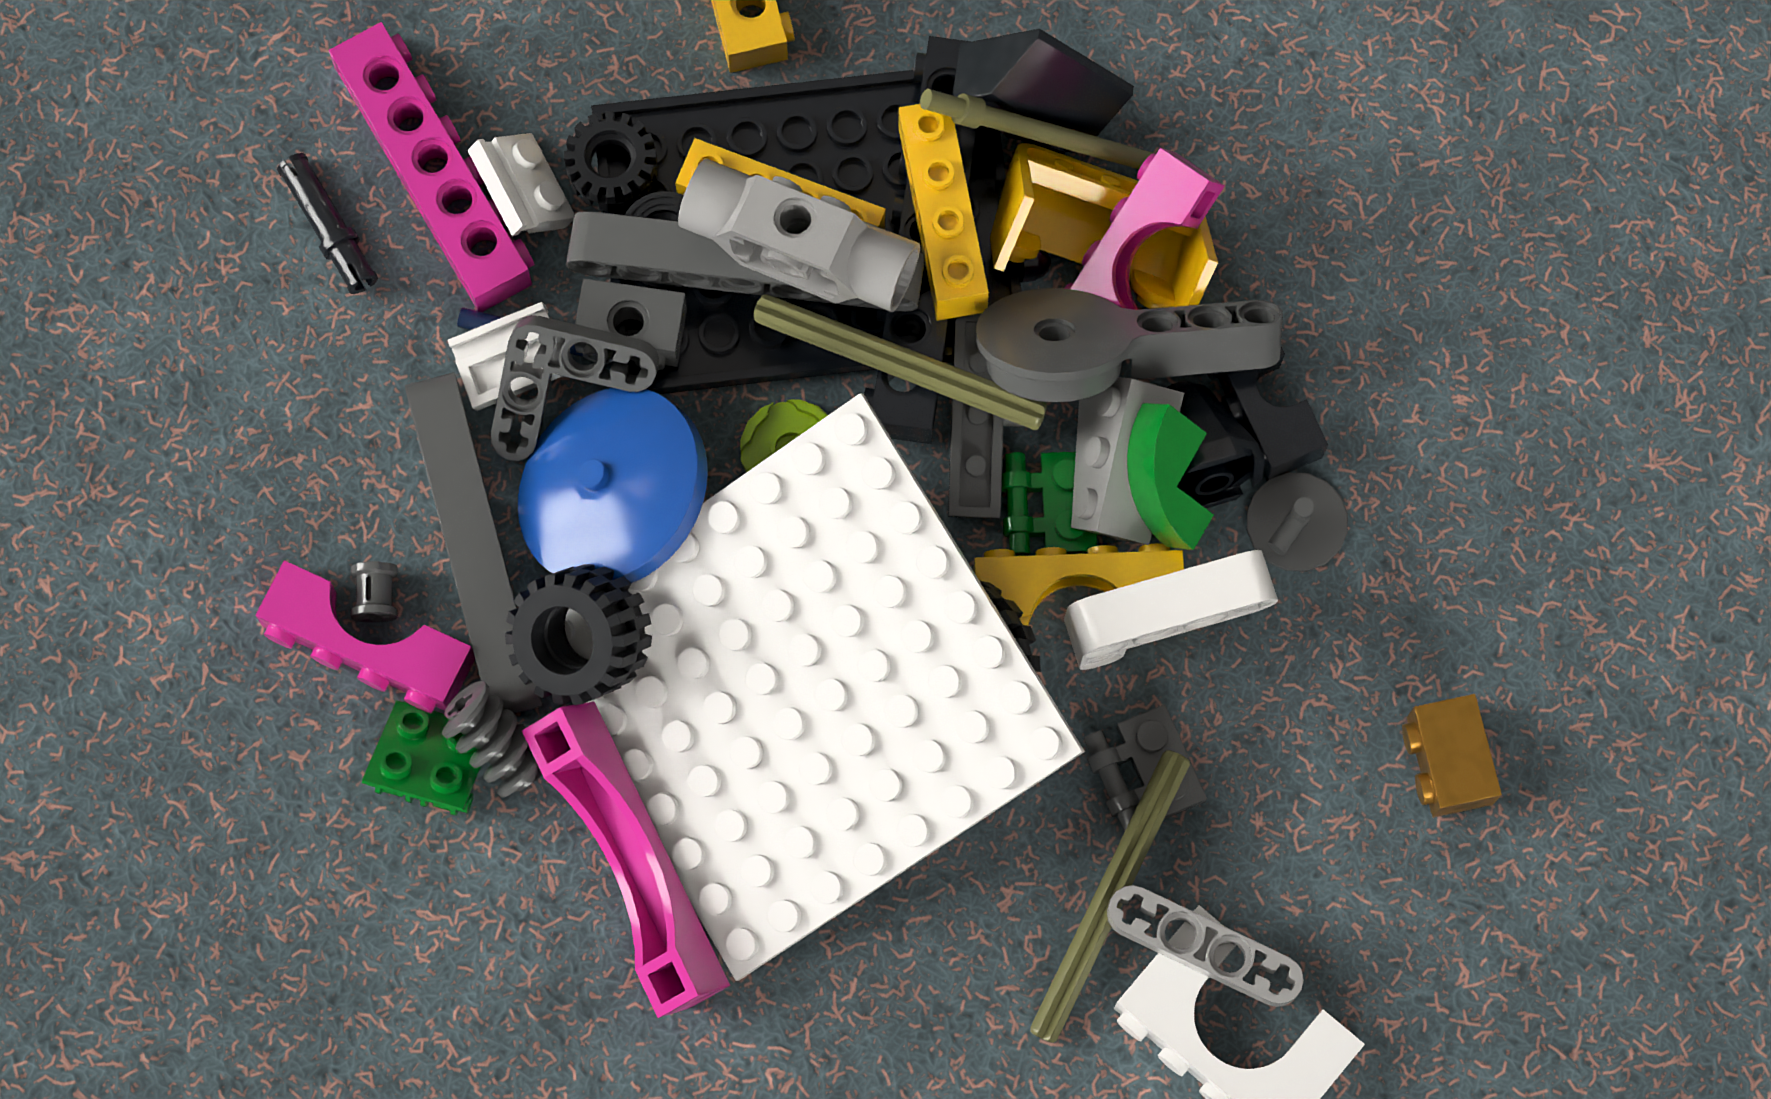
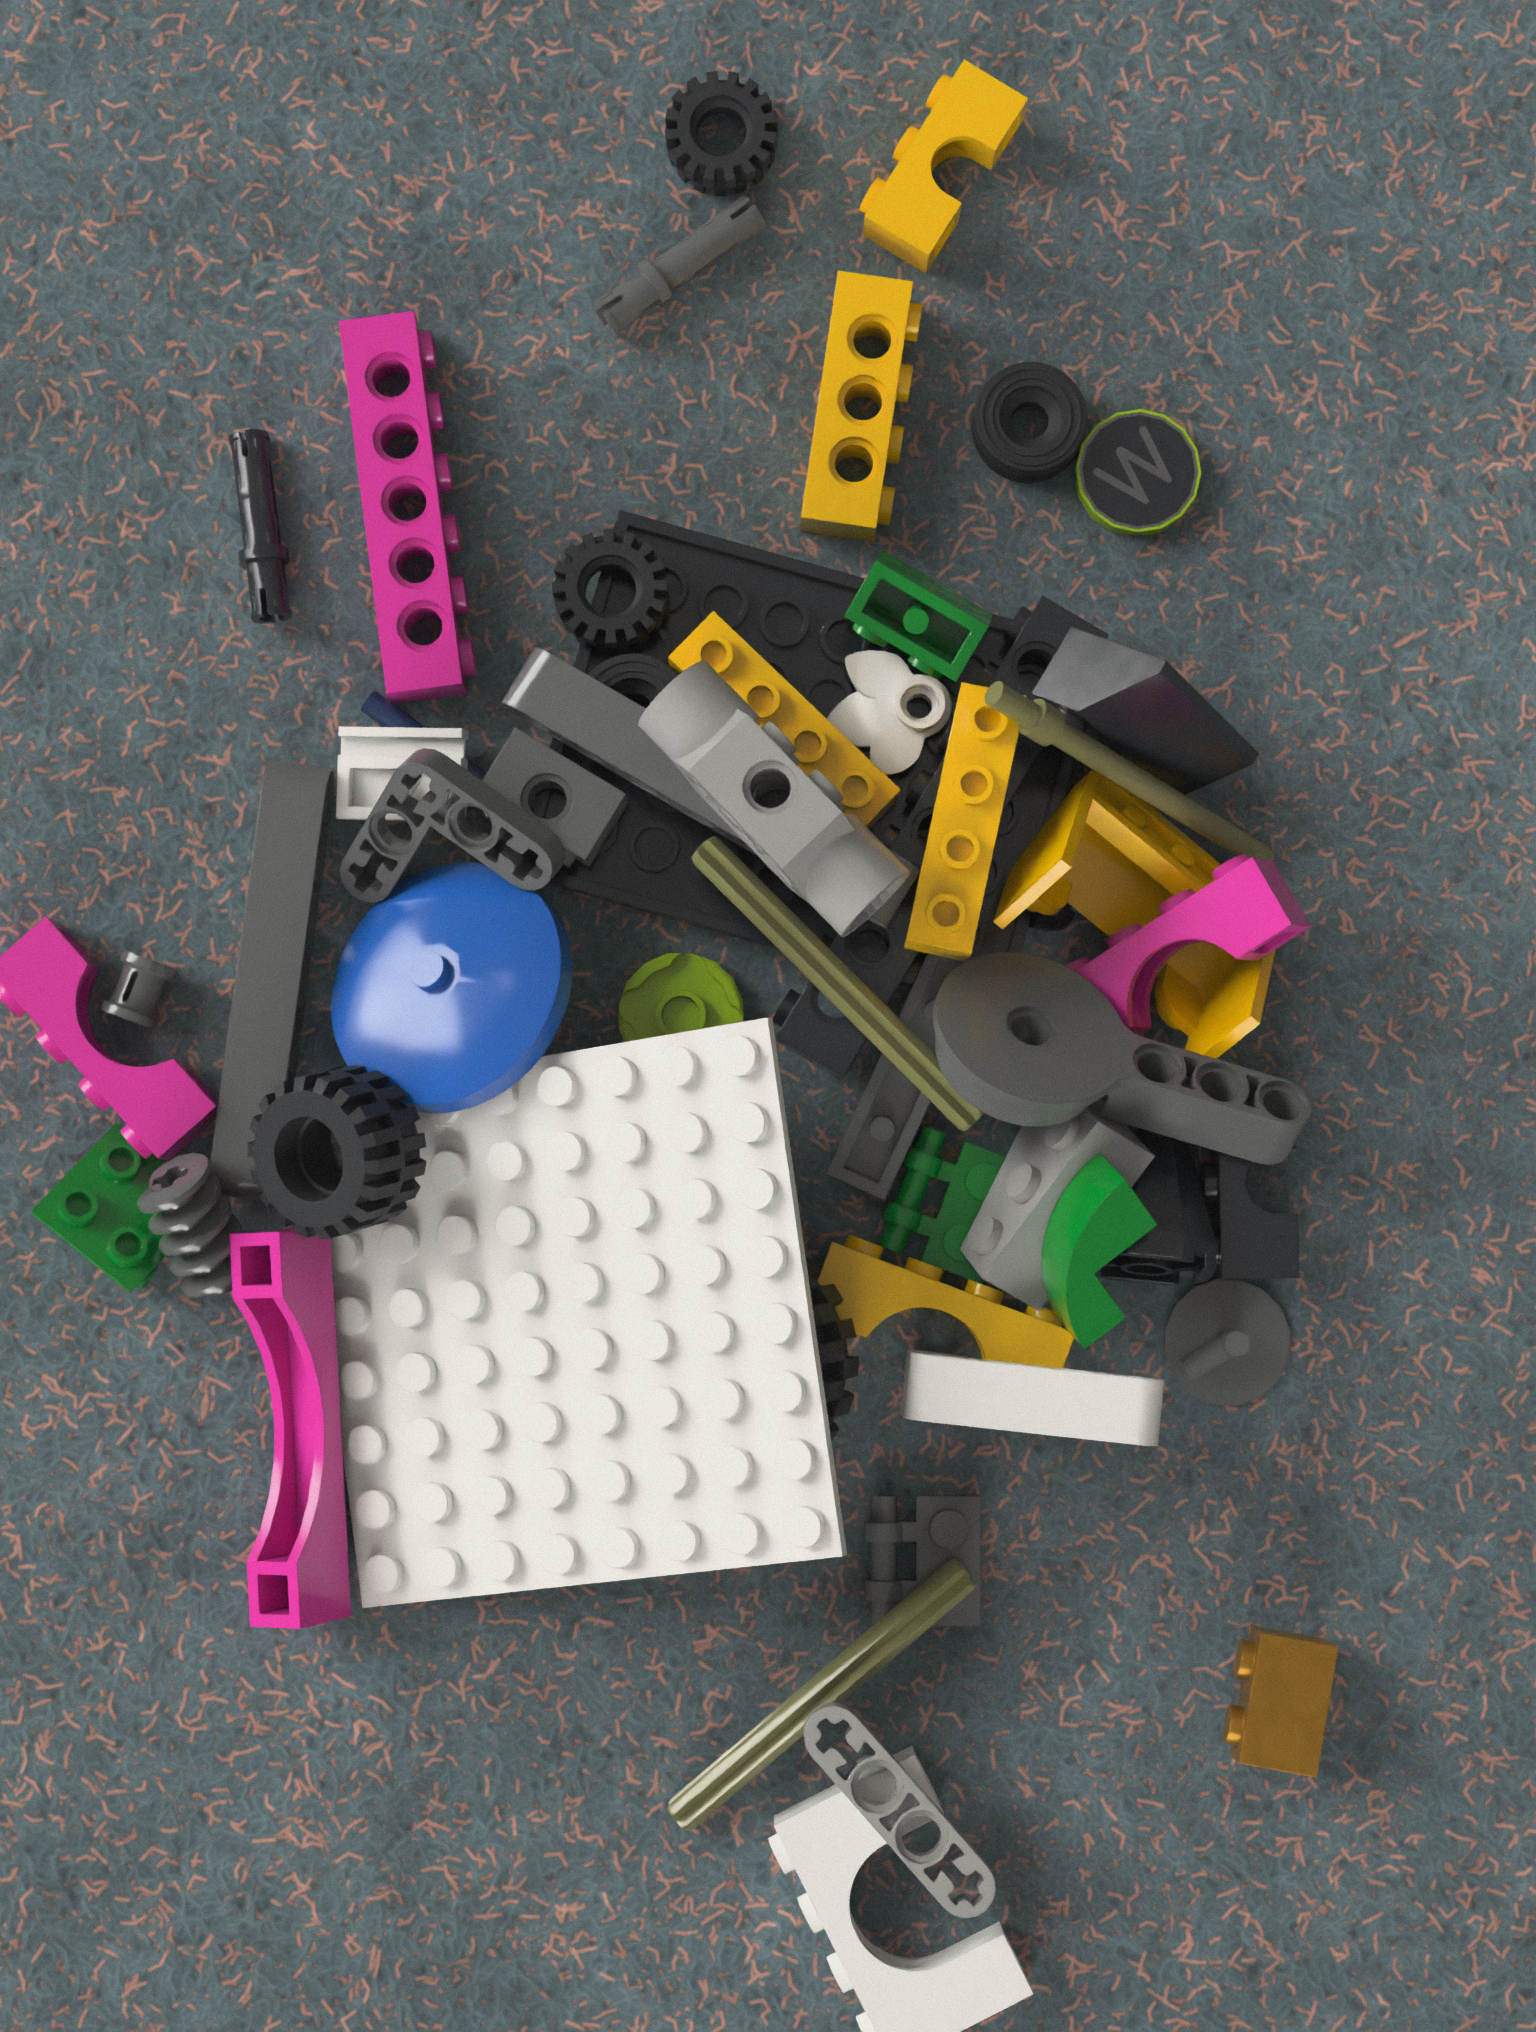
camera: 25 degrees right, 10 degrees up
(521, 184) = (499, 573): white plate -> none
(844, 165) = (878, 710): none -> white plate
(845, 86) = (917, 617): none -> green brick

